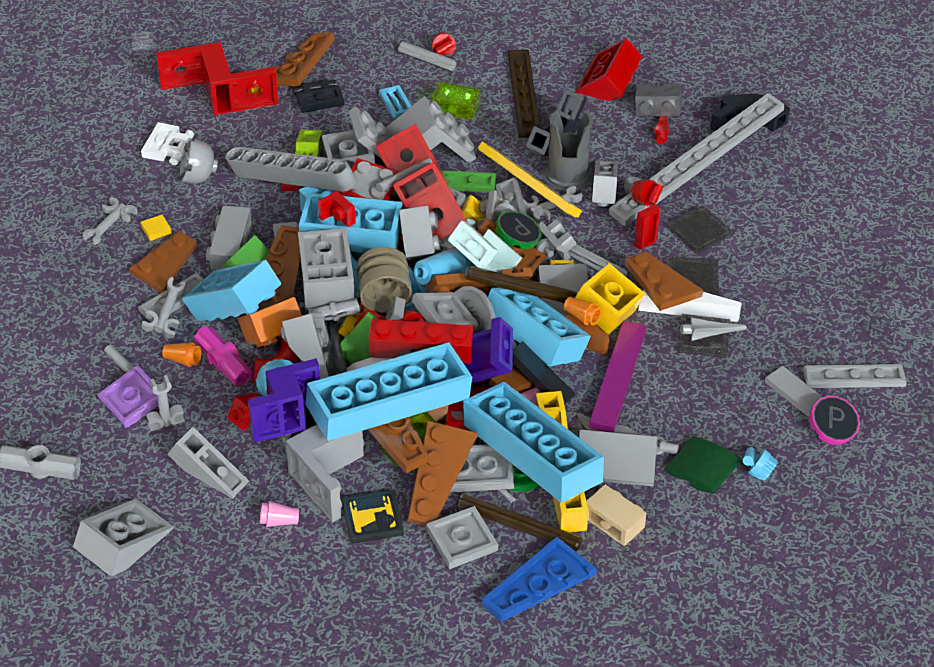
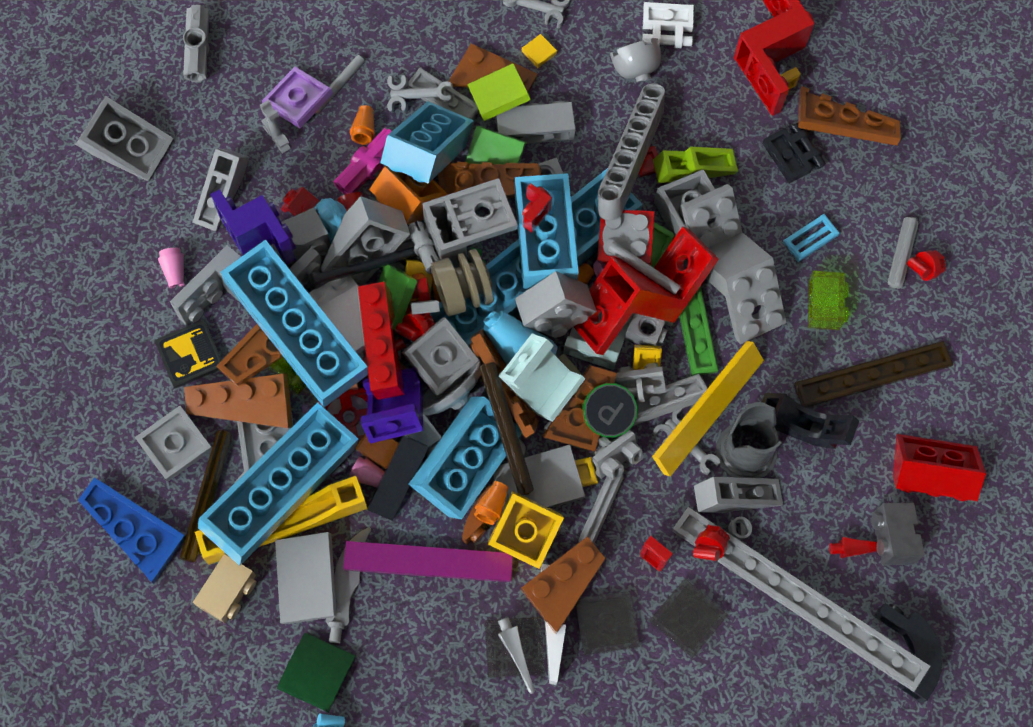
camera: 75 degrees right, 25 degrees up
(194, 248) = (498, 92): none -> lime tile

